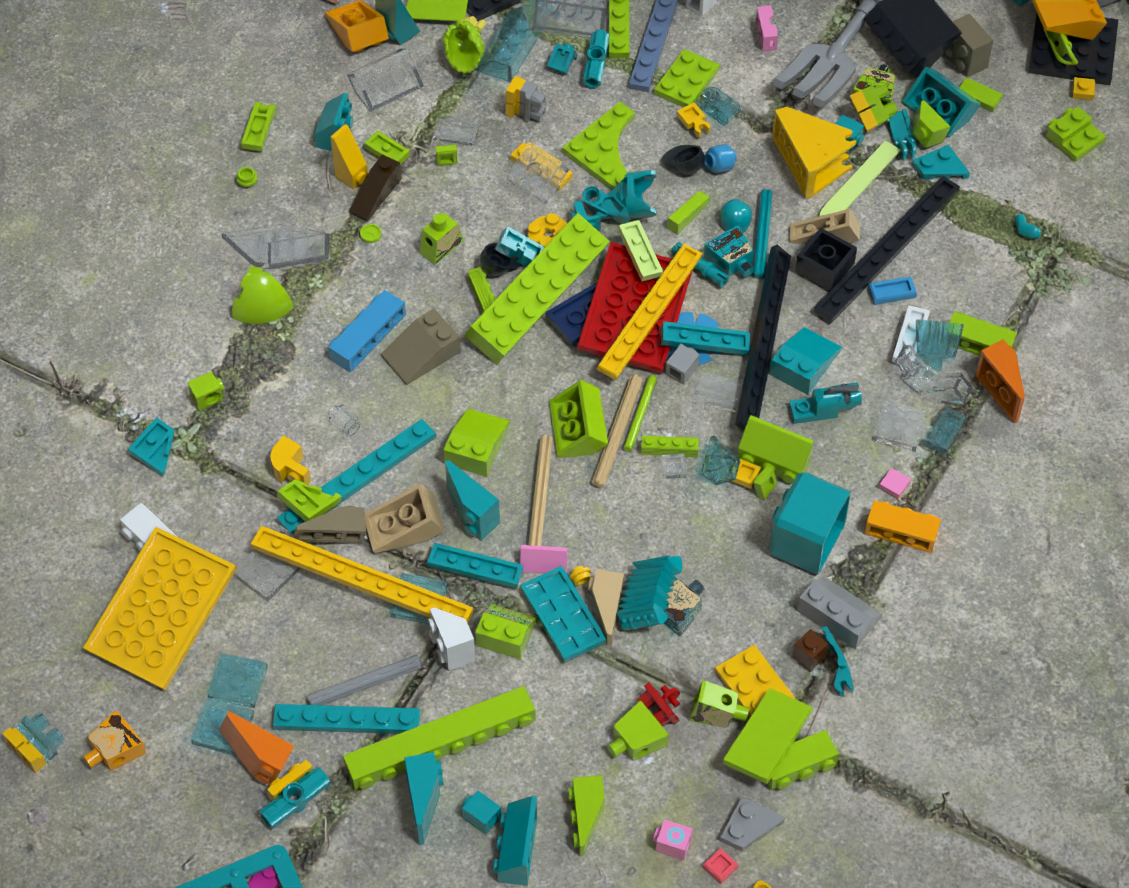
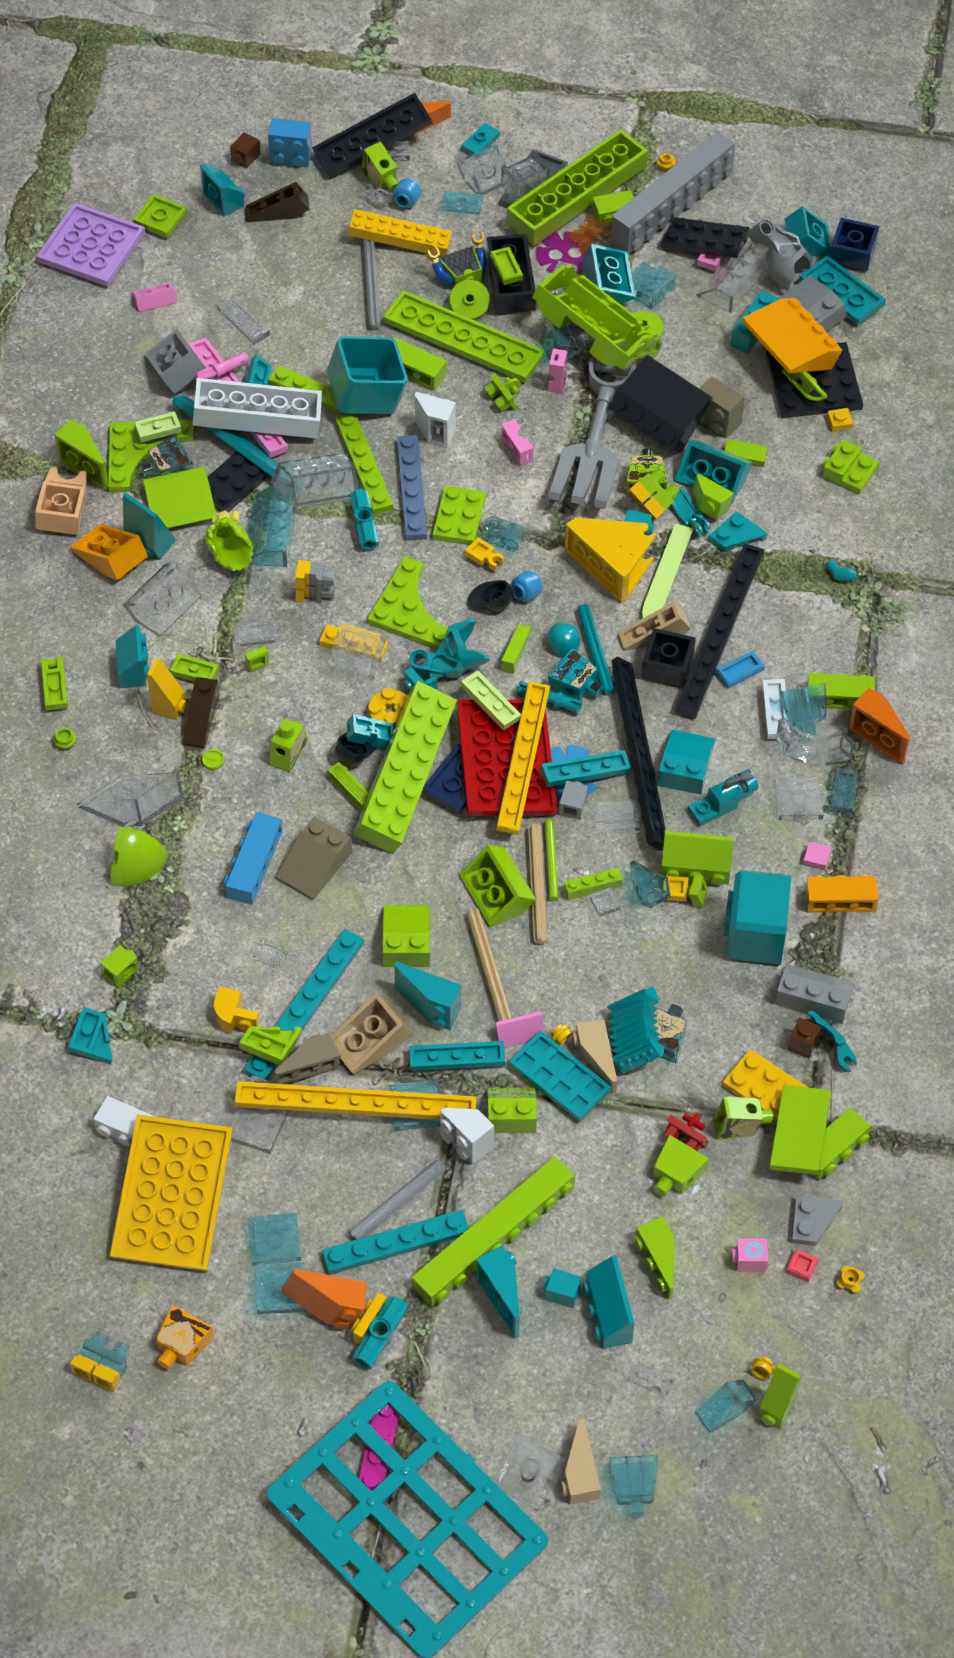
camera: 20 degrees left, 0 degrees up
(562, 58) = (329, 528): teal bracket -> none

